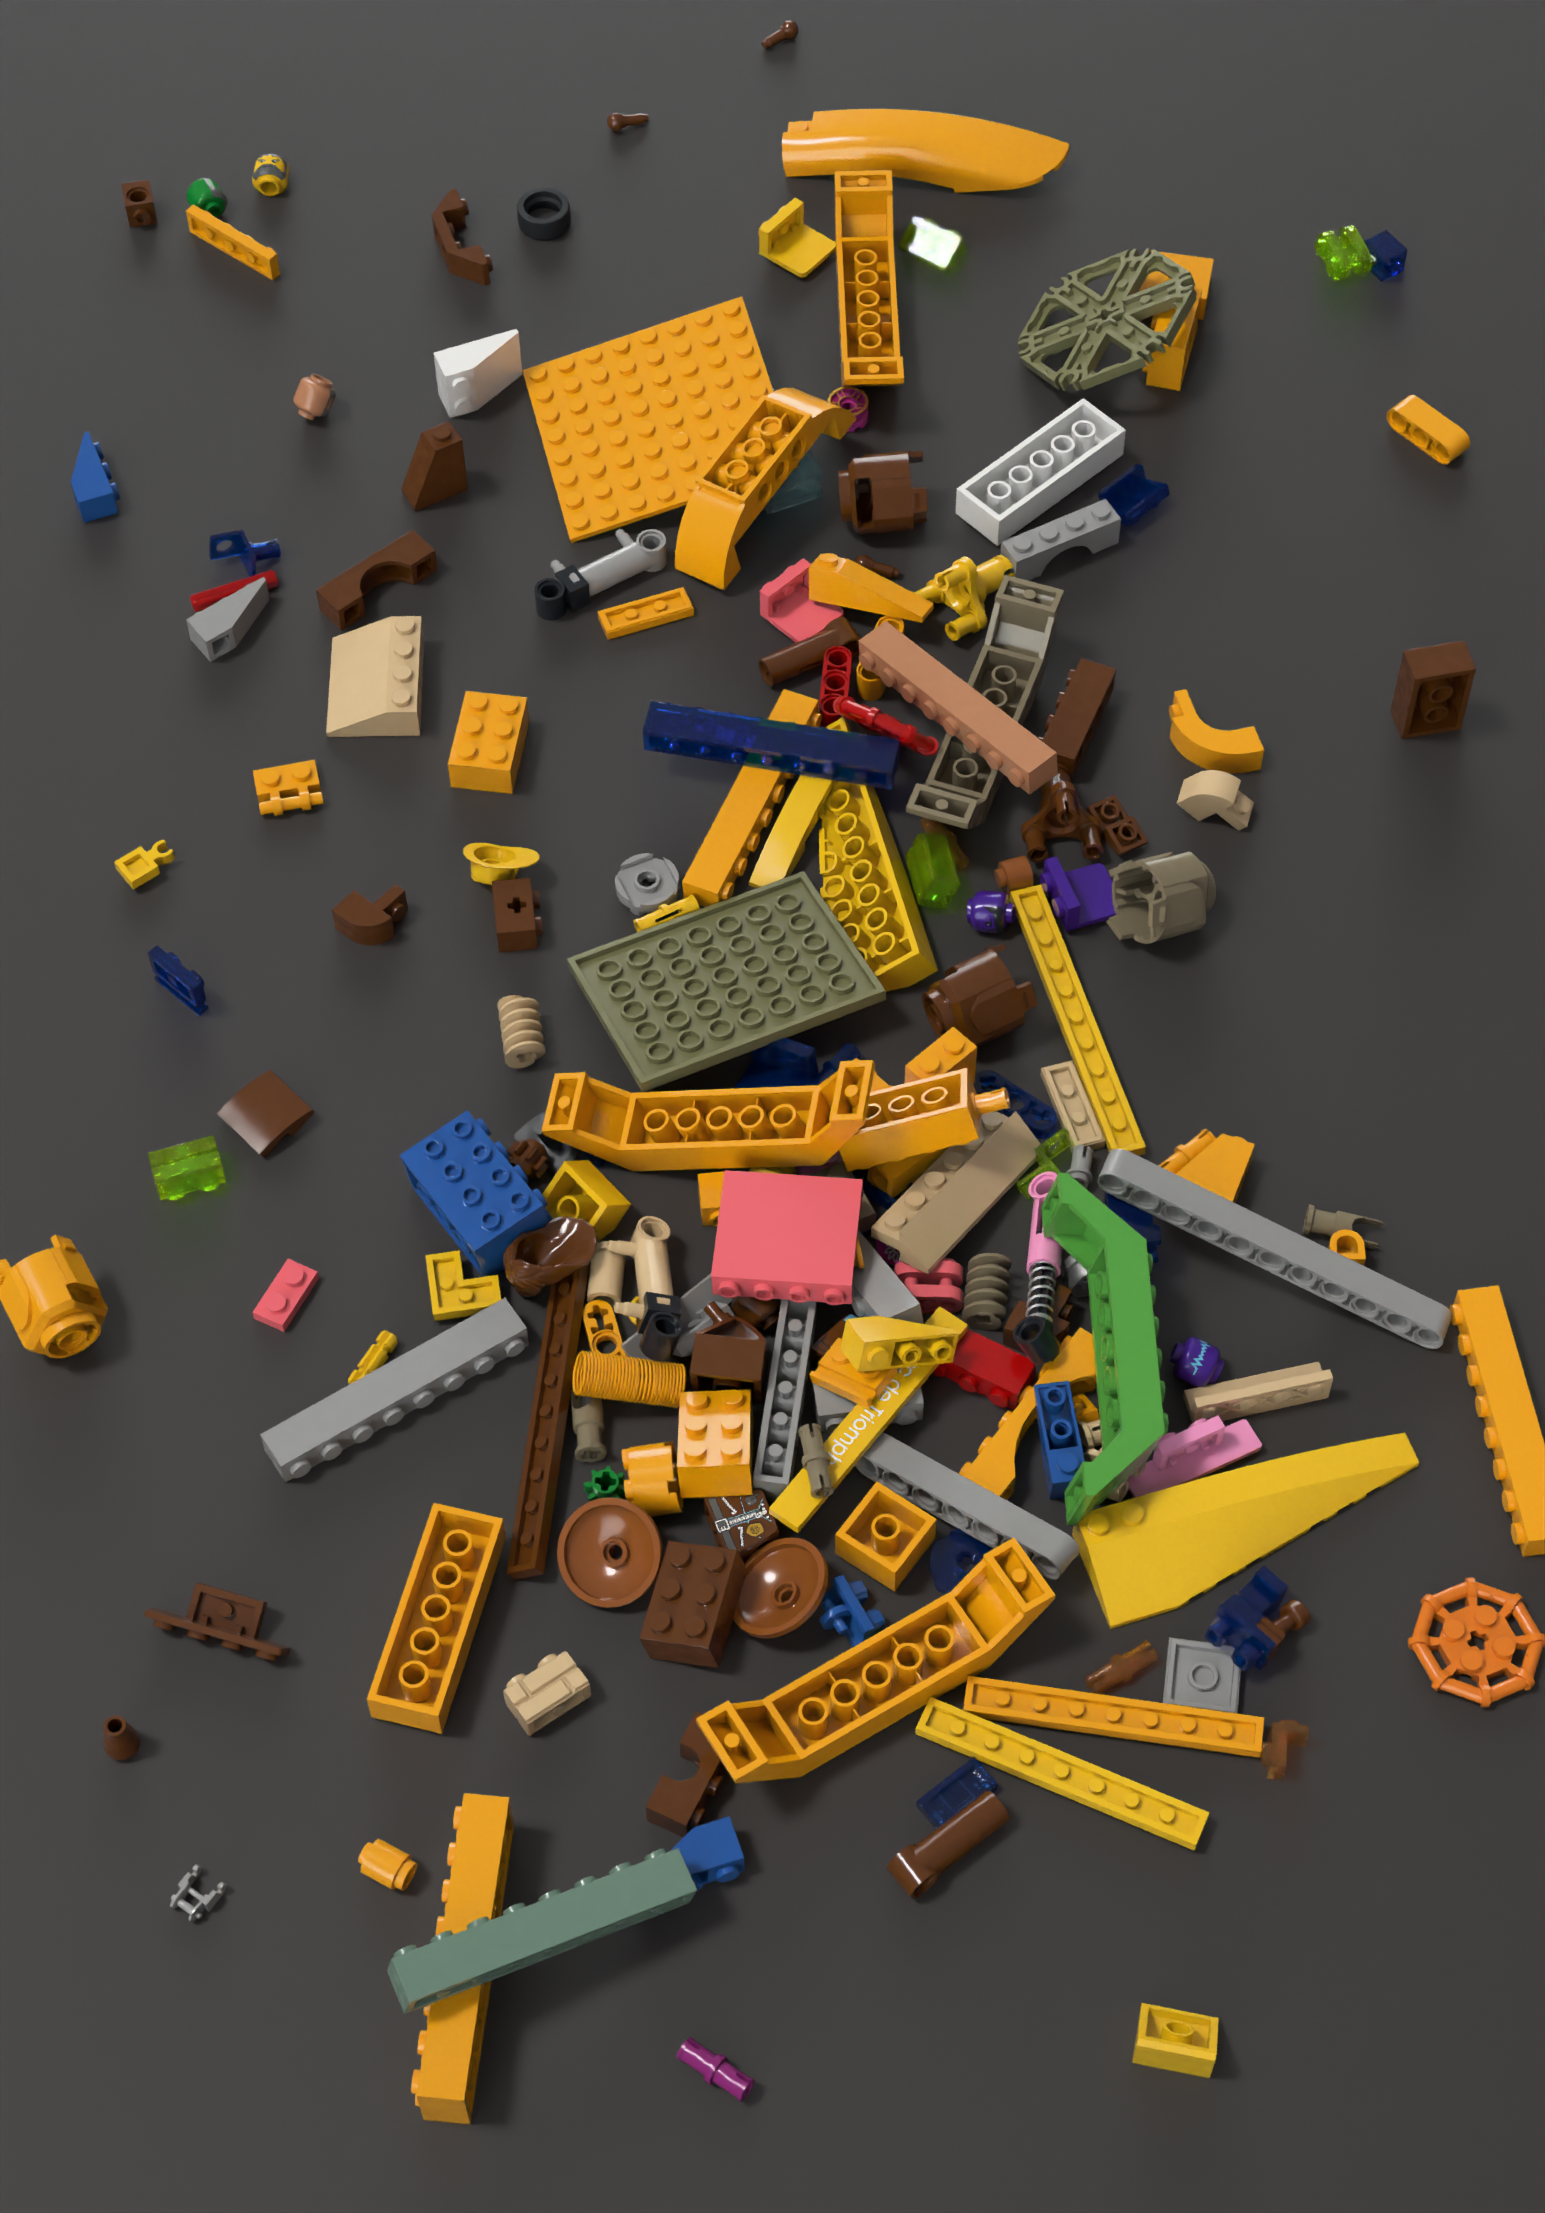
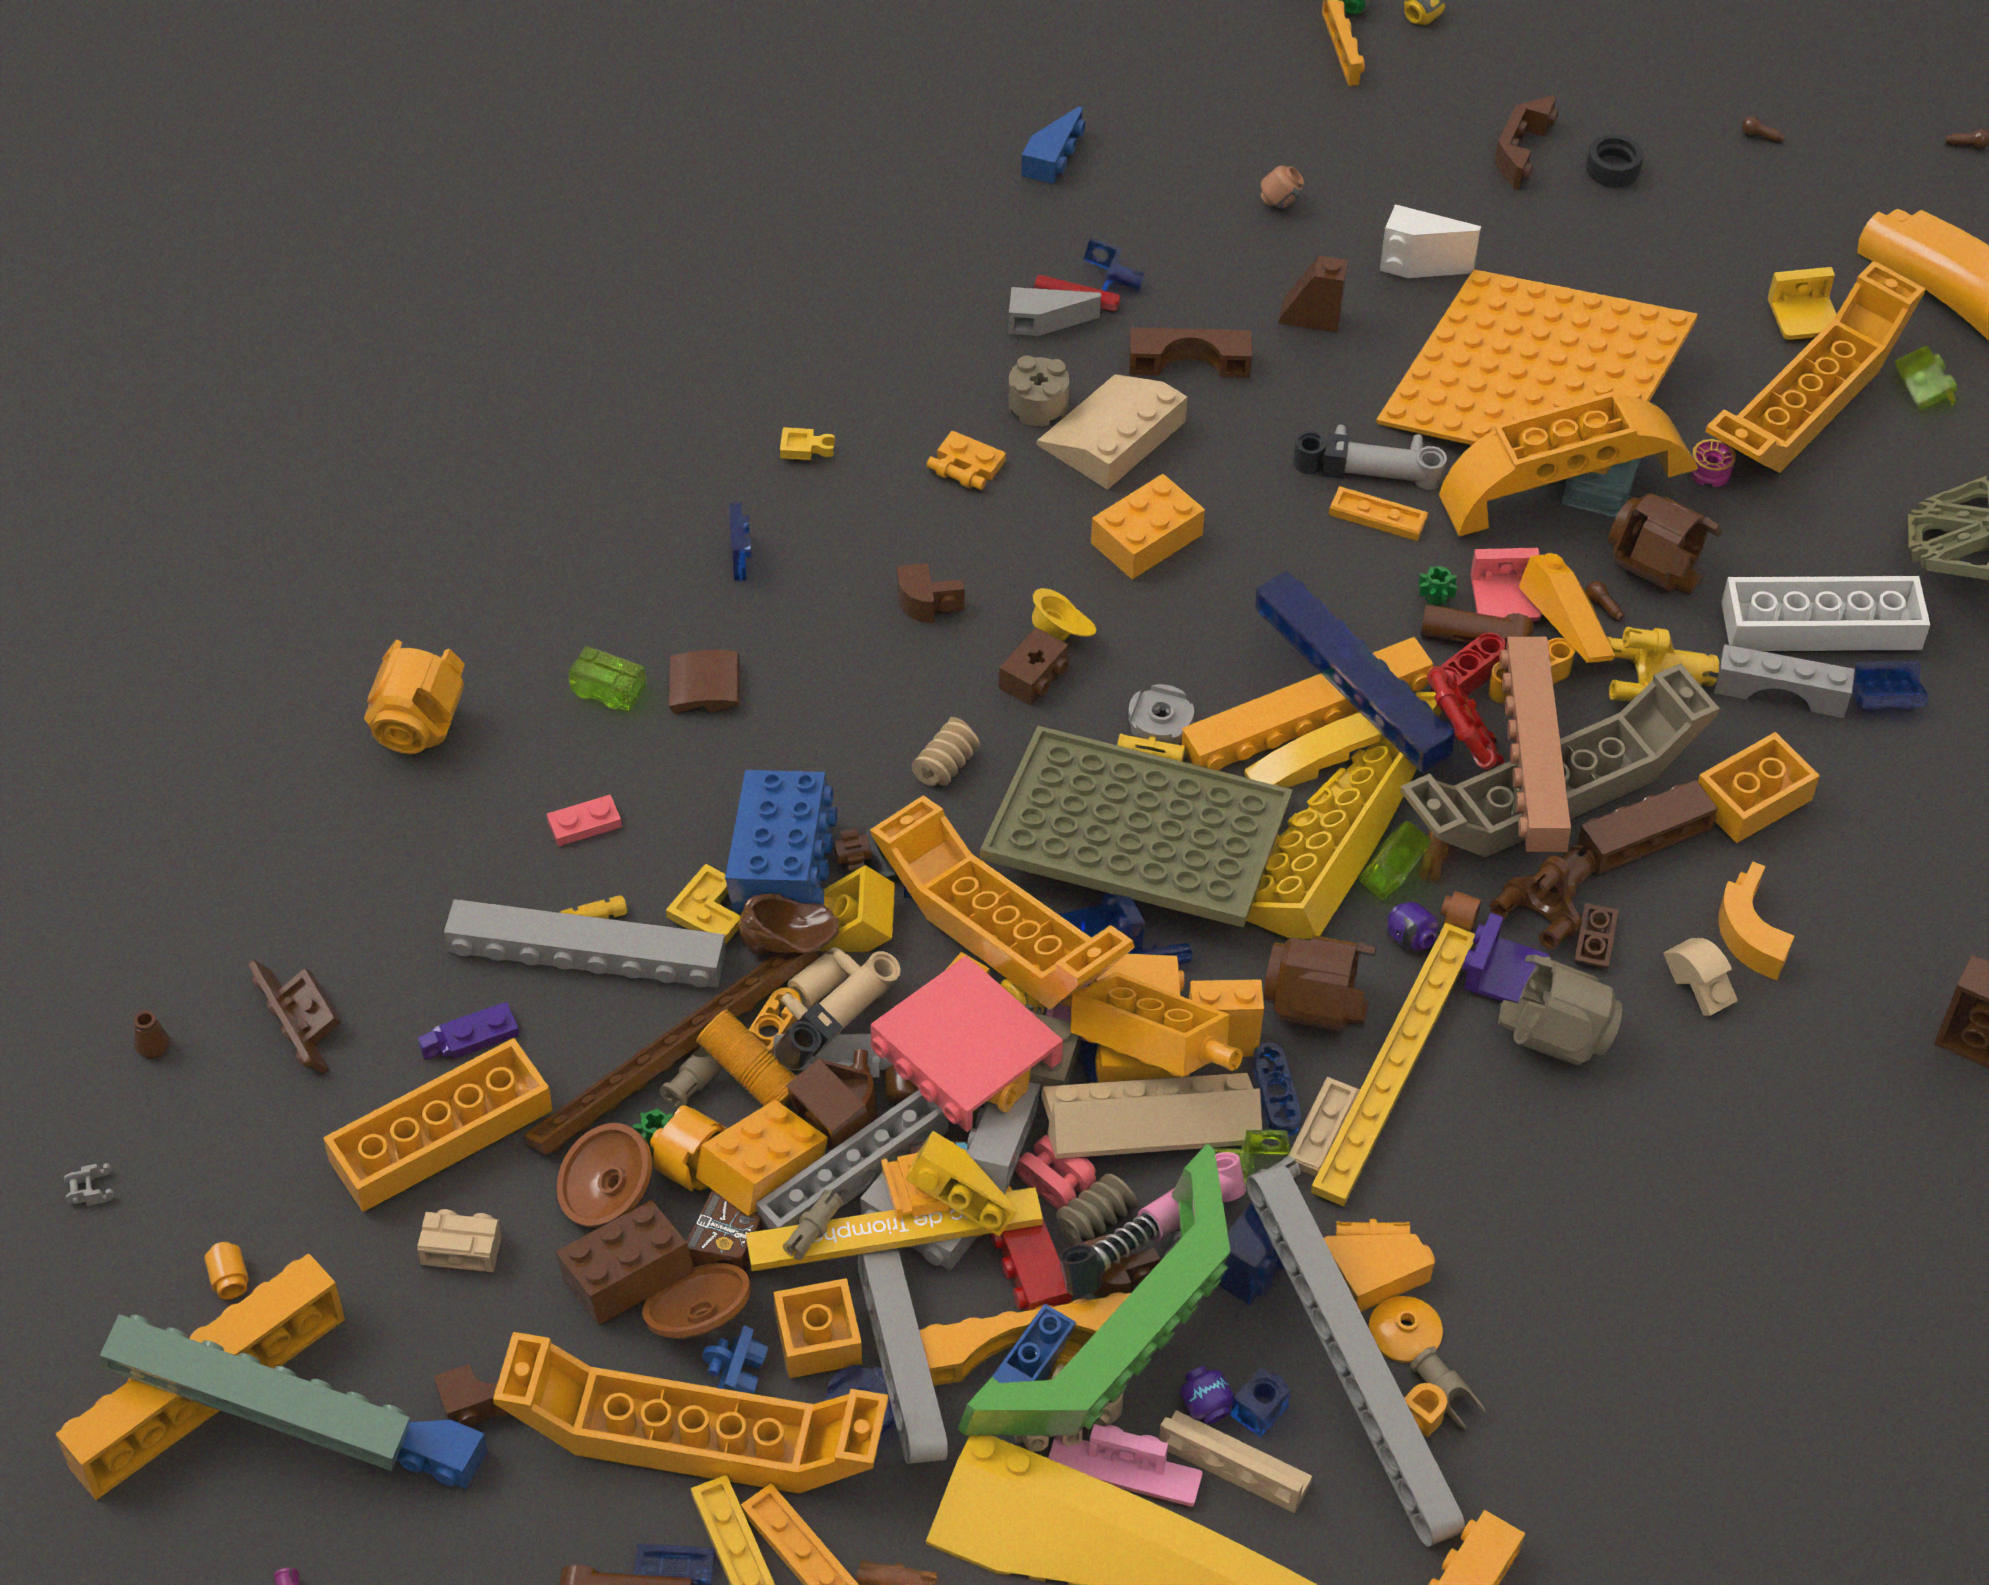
camera: 40 degrees right, 5 degrees down
(291, 690) = (1038, 390): none -> dark tan brick
(377, 1528) = (470, 1033): none -> dark purple hinge
(749, 639) = (1437, 585): none -> green gear
(1123, 631) = (1758, 786): none -> light orange brick
(1236, 1349) = (1258, 1415): none -> clear blue brick
(1289, 1204) = (1400, 1341): none -> light orange dish

